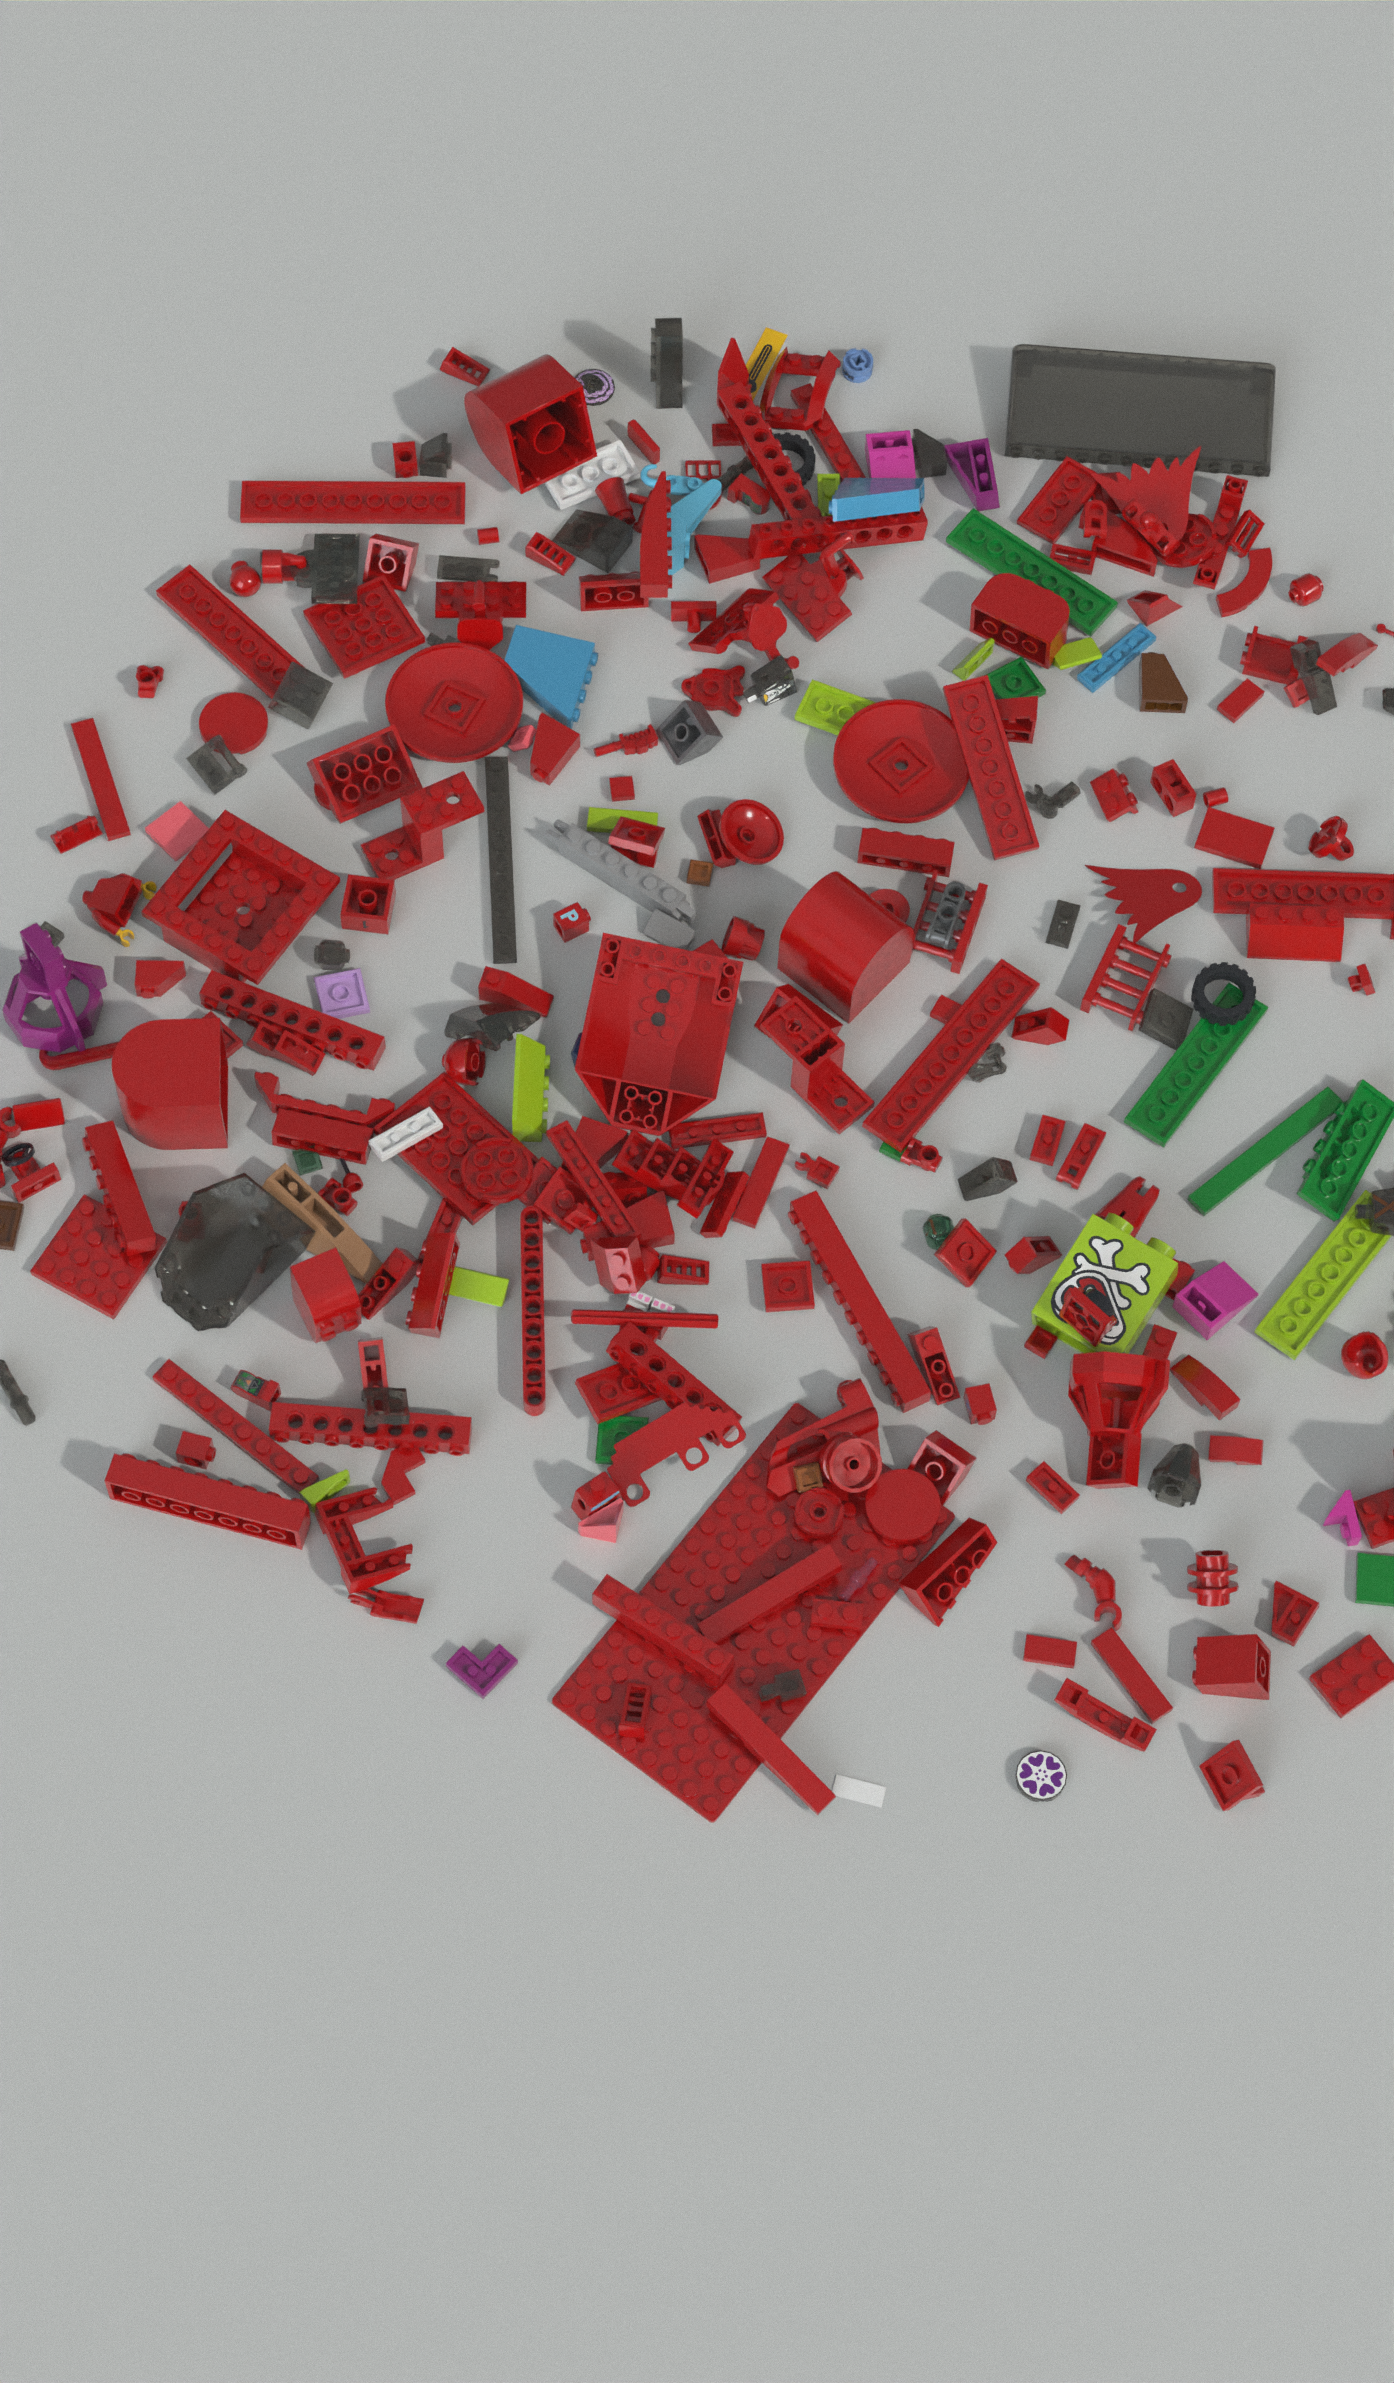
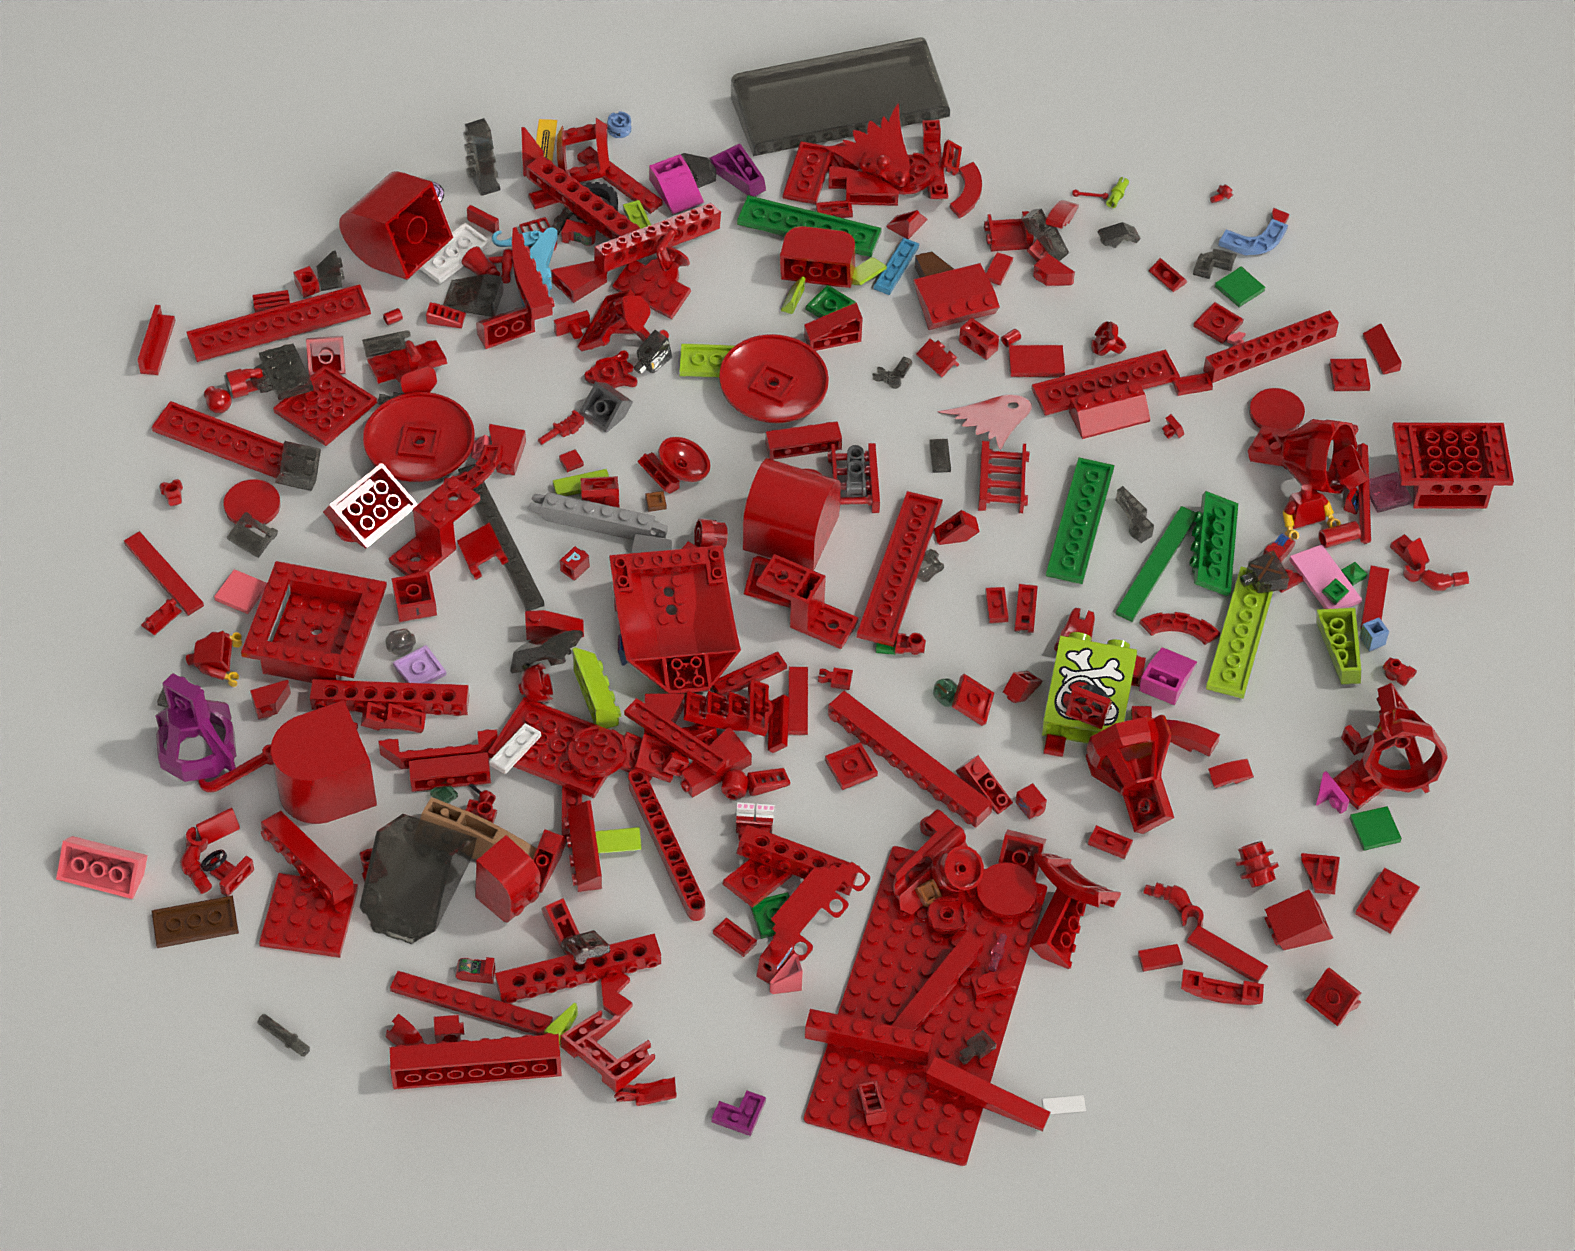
camera: 20 degrees left, 10 degrees down
(144, 1438) = (403, 1032): none -> red brick
(202, 482) = (155, 342): none -> red fence
(357, 468) = (270, 298): none -> red tile
(462, 359) = (315, 205): red slope -> none
(469, 866) = (480, 547): none -> red flag
(507, 771) = (484, 466): none -> red tile
(552, 670) = (483, 393): dark azure slope -> none
(565, 1451) = (735, 937): none -> red tile
(619, 1263) = (719, 787): red slope -> none
(643, 1318) = (756, 819): red axle -> none
(876, 497) = (677, 204): dark azure slope -> none
(944, 1009) = (880, 539): red tile -> none
(987, 1179) = (965, 644): clear smoke slope -> none
(991, 767) = (842, 362): red plate -> none
(1006, 1544) = (1062, 872): none -> red wedge
(1041, 1776) = (1194, 1047): tile -> none
(1096, 513) = (840, 171): red plate -> none
(1165, 1019) = (1045, 496): clear smoke tile -> none
(1168, 722) = (956, 296): none -> red slope
(1177, 1476) = (1198, 805): clear smoke cone -> none
(1223, 972) = (1076, 479): black tyre -> none
(1260, 1236) = (1181, 623): none -> red tile
(1264, 1095) = (1140, 526): none -> clear smoke slope
(1303, 727) = (1053, 272): none -> red slope
(1305, 589) = (1011, 181): red head -> none
(1364, 1355) = (1293, 676): red piece -> none

